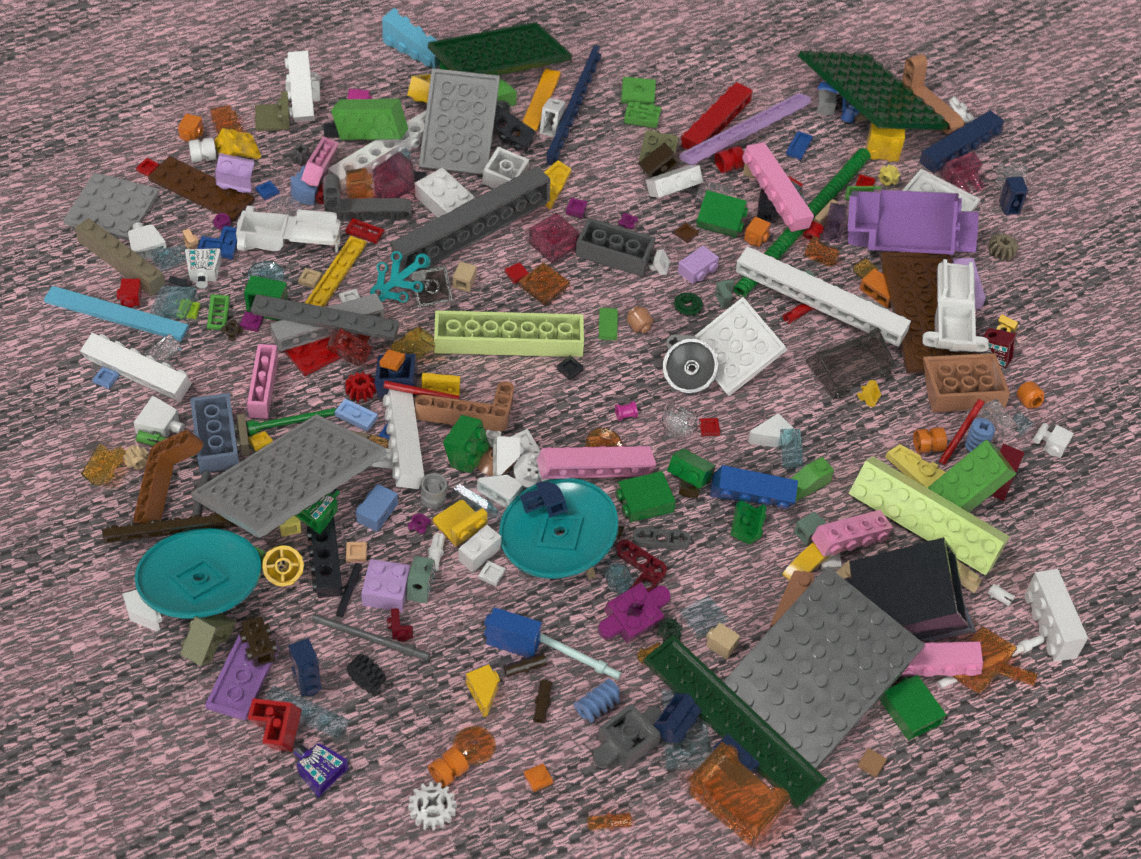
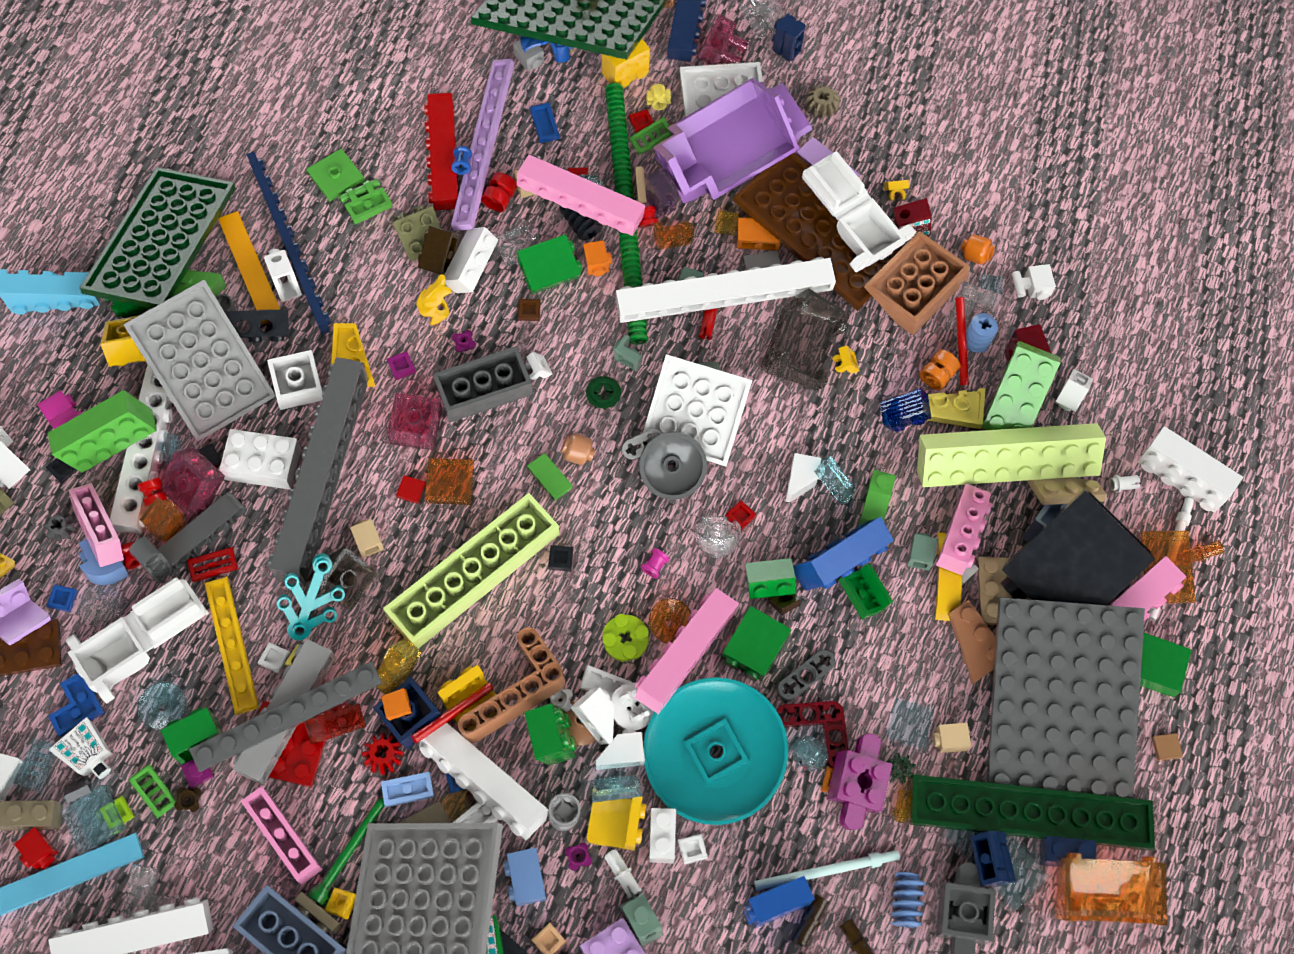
camera: 40 degrees left, 15 degrees up
(190, 240) = (41, 730): light nougat plate -> none
(221, 220) = (51, 677): magenta plate -> none
(310, 278) = (209, 668): tan tile -> none
(370, 164) = (150, 486): none -> red wheel
(547, 496) = (681, 727): dark blue brick -> none
(569, 427) = (628, 650): none -> lime plate
(629, 181) = (431, 298): none -> yellow hair
(698, 264) = (575, 340): lavender brick -> none
(721, 125) = (464, 160): none -> blue bush
(880, 442) = (905, 410): none -> clear blue brick
(1018, 517) = (1074, 391): none -> white slope

